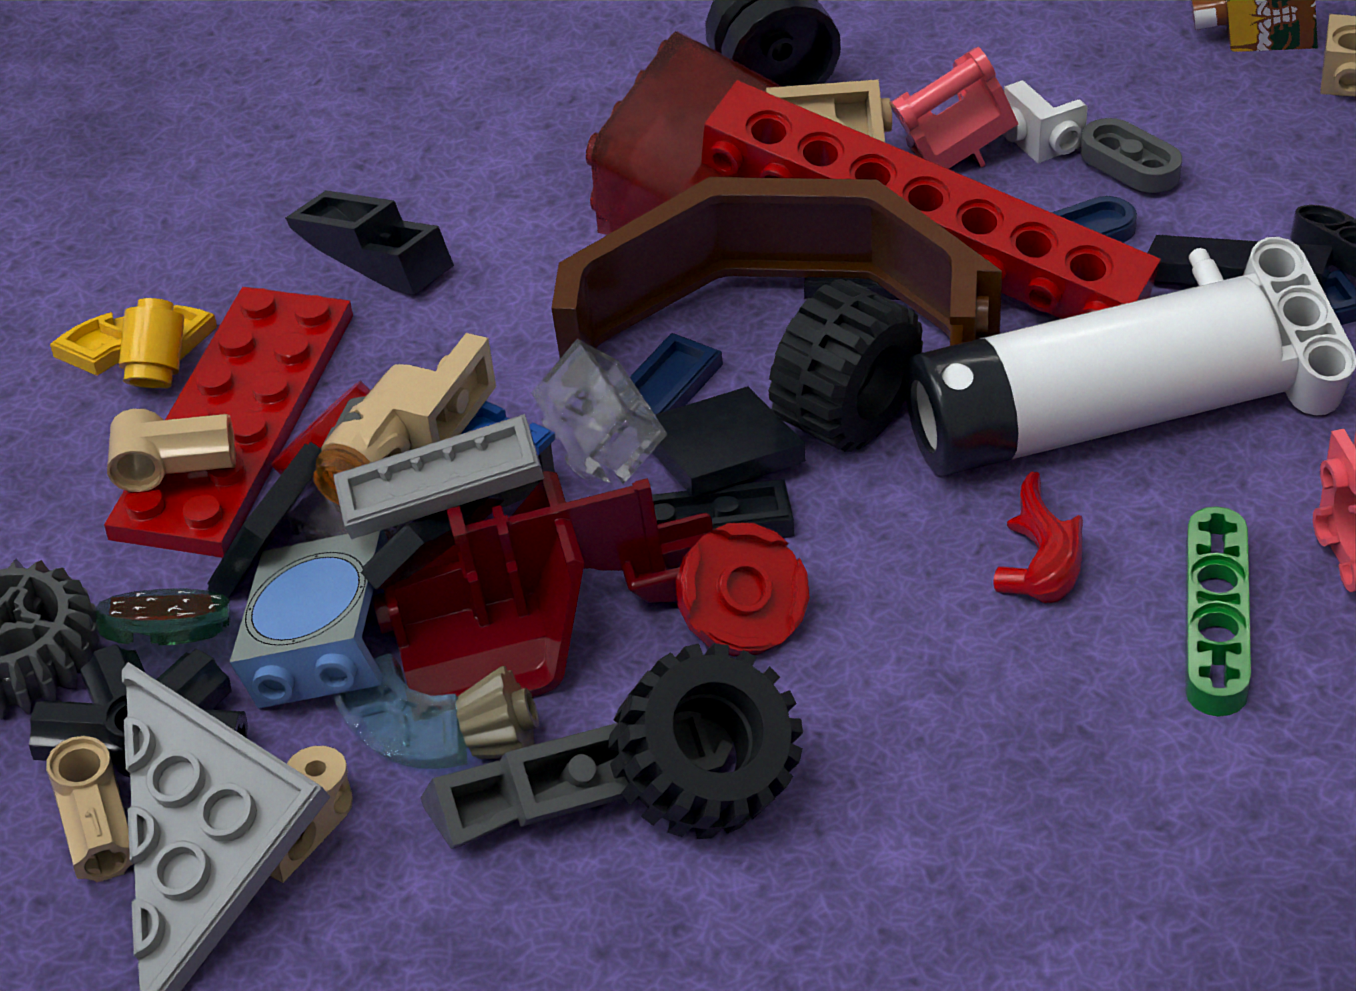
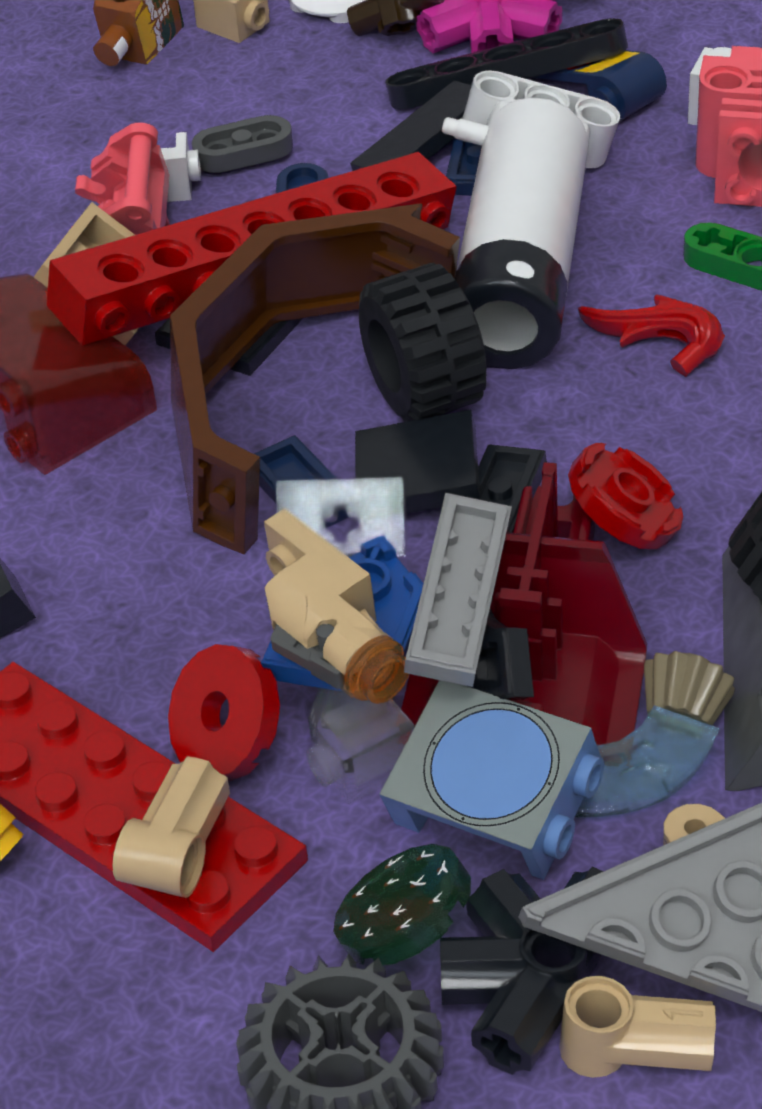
camera: 65 degrees left, 0 degrees up
(265, 521) = (339, 780): black tile -> none

